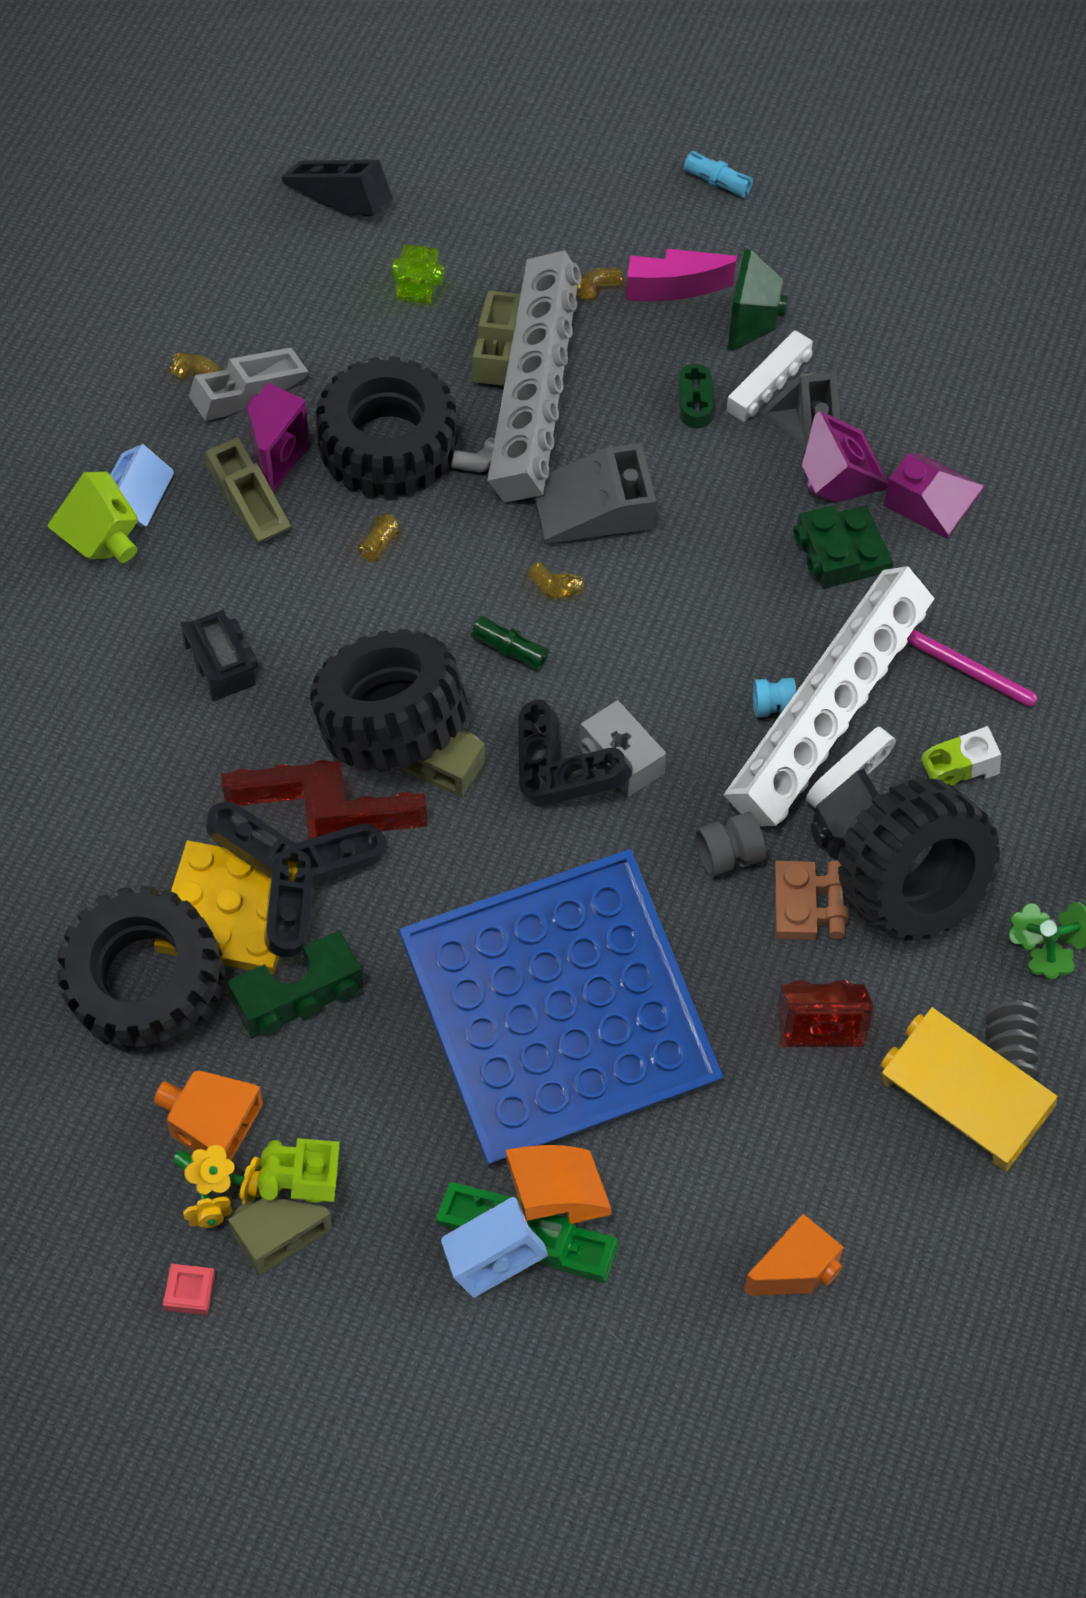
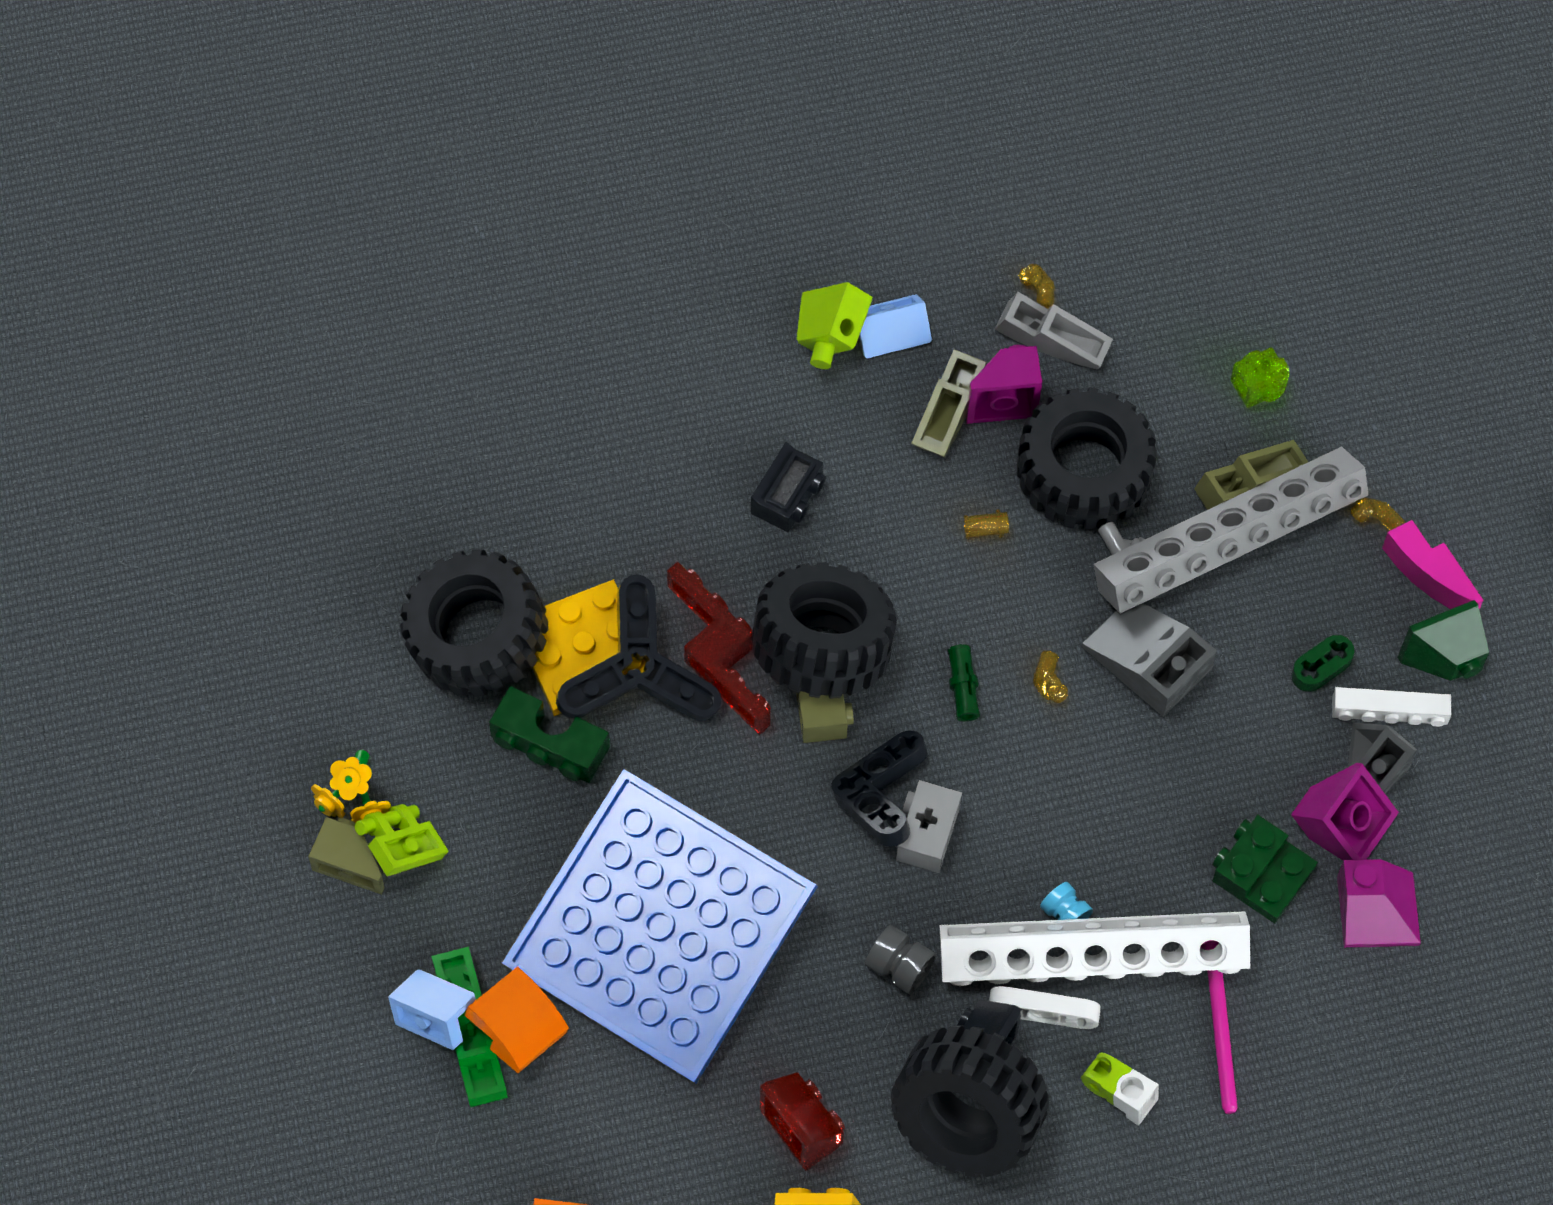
camera: 55 degrees right, 5 degrees up
(189, 1289) = (267, 831): coral tile -> none
(210, 1111) = (404, 751): orange torso -> none
(342, 184) = (1305, 261): black slope -> none
(796, 901) = (892, 1043): nougat plate -> none

